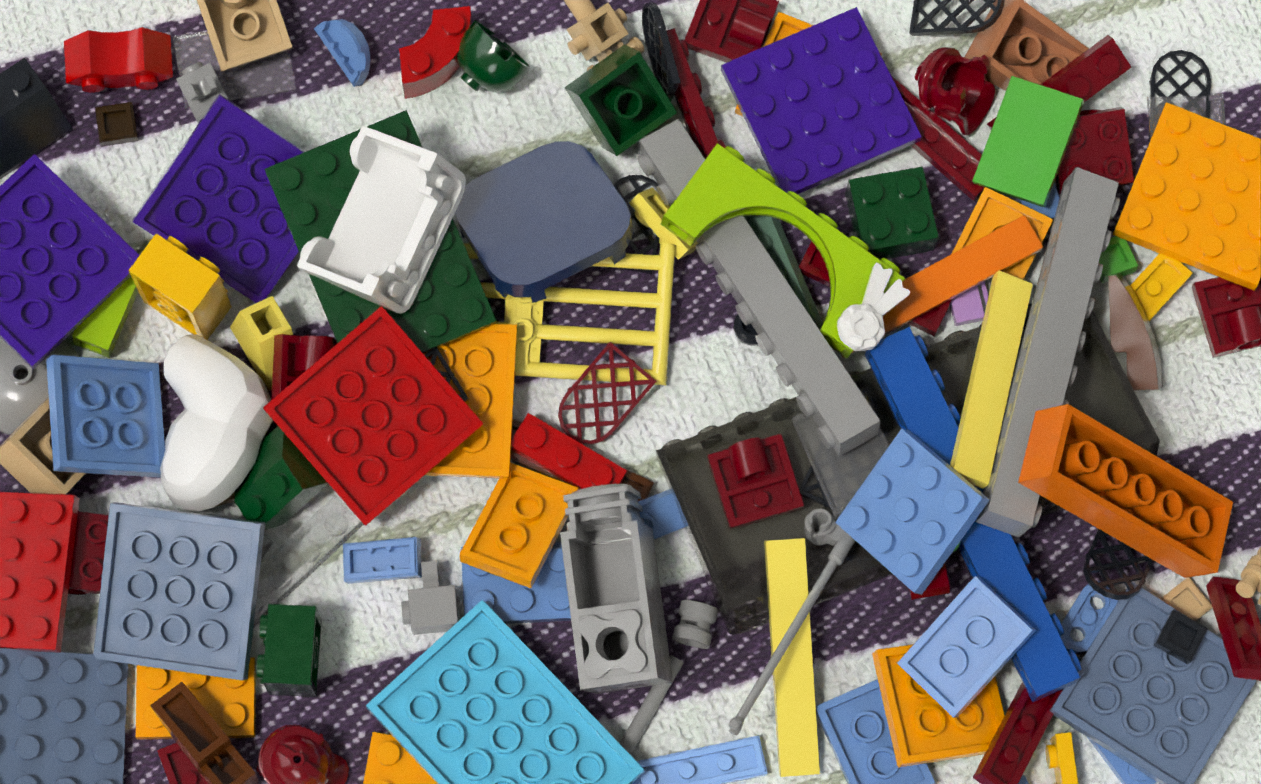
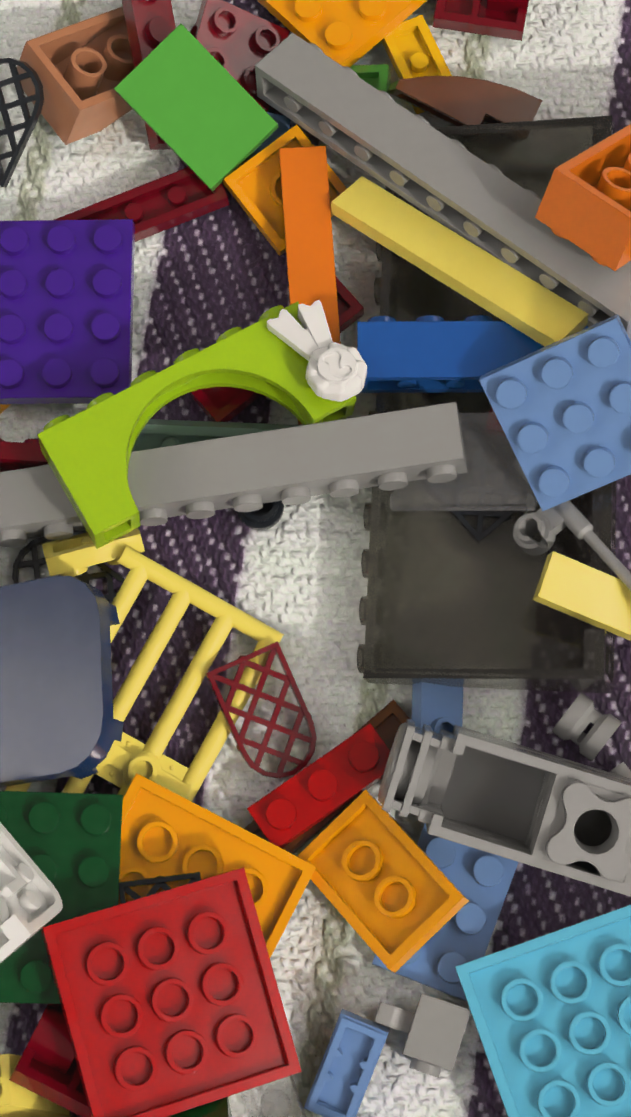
camera: 55 degrees left, 0 degrees up
(755, 481) = (448, 582): dark red plate -> none
(892, 213) = (202, 290): dark green brick -> none
(955, 87) = (91, 160): dark red helmet -> none
(970, 305) = (350, 259): lavender tile -> none

